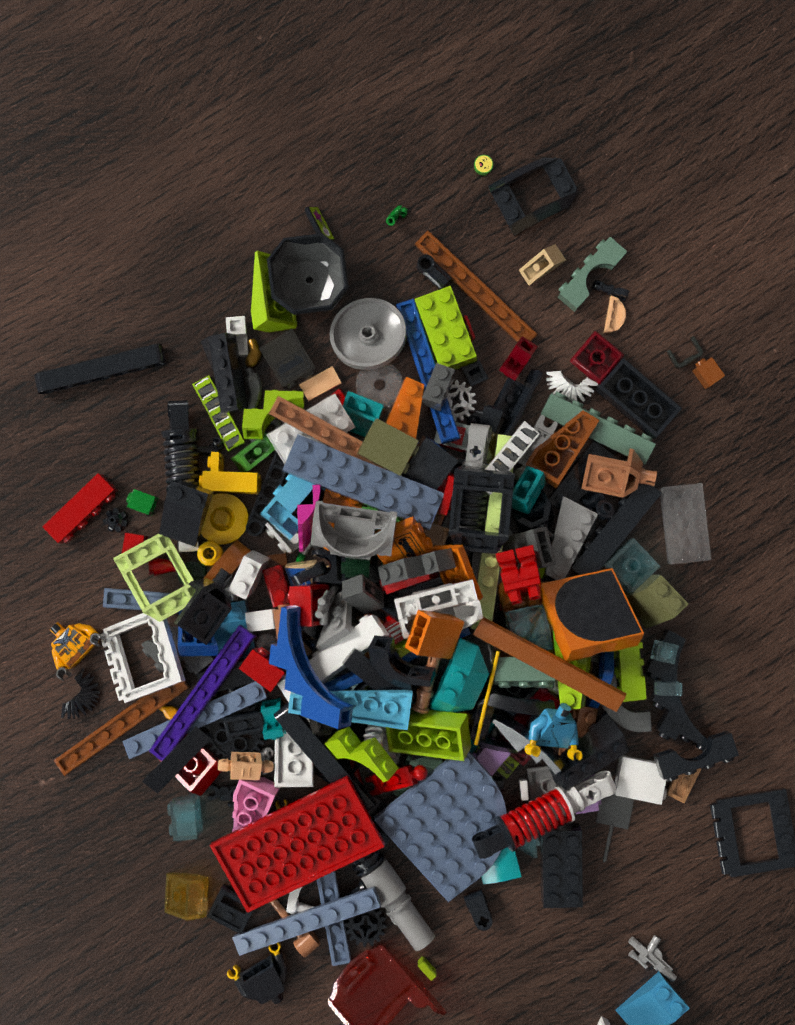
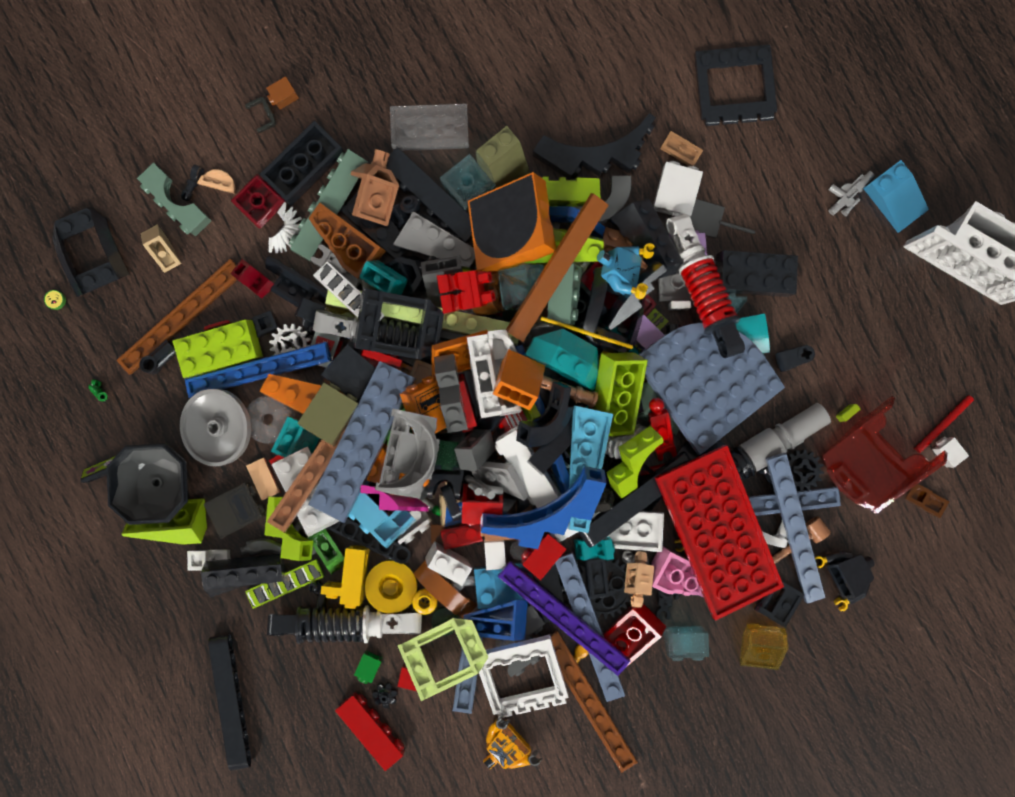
camera: 90 degrees left, 0 degrees up
(82, 698) = (561, 739): black hair -> none
(160, 566) = (434, 652): red cone -> none
(176, 760) = (628, 648): black sticker -> none
(185, 511) = (379, 624): black slope -> none
(206, 607) = (476, 608): black plate -> none
(254, 354) = (227, 543): pearl gold arm -> none
(438, 387) = (273, 359): dark grey brick -> none
(664, 652) = (553, 156): clear light blue brick -> none
(668, 688) = (589, 155): clear light blue piece -> none
(719, 748) = (652, 111): black arch -> none

